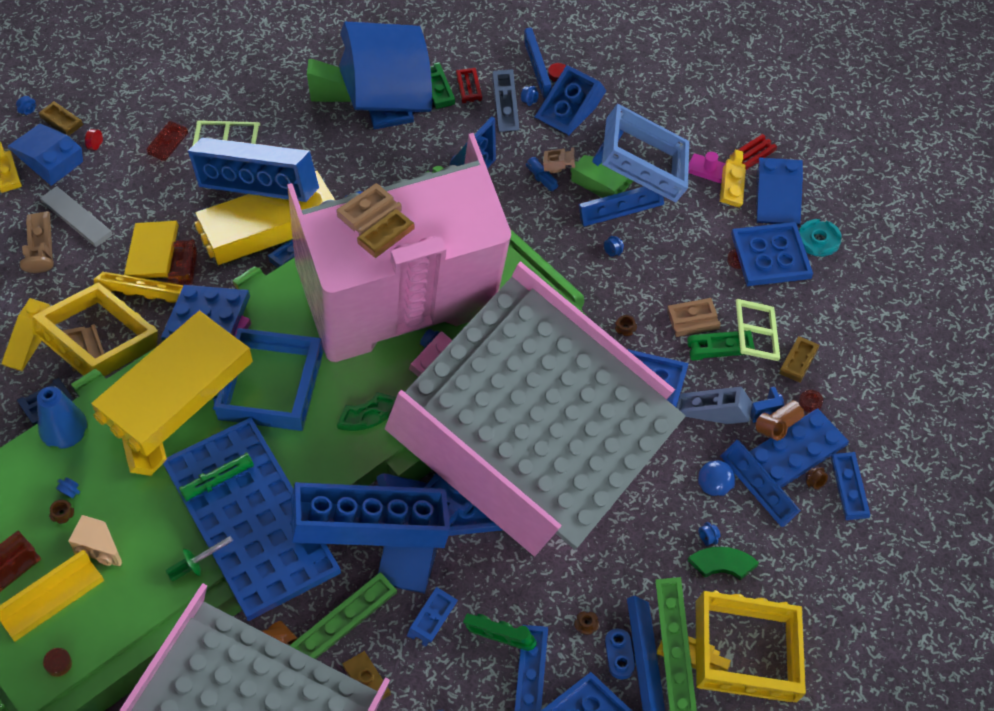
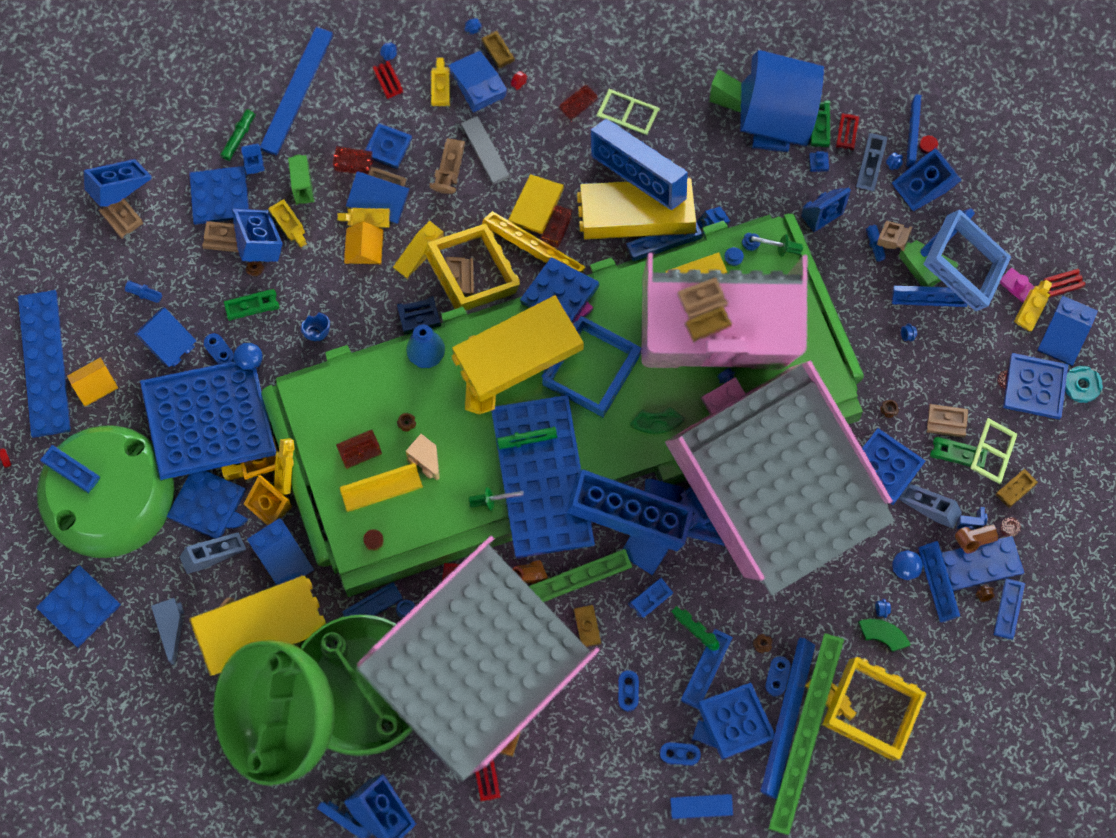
camera: 20 degrees right, 15 degrees up
(68, 487) = (416, 404): blue plate -> none
(450, 119) = (819, 161): none -> blue tile

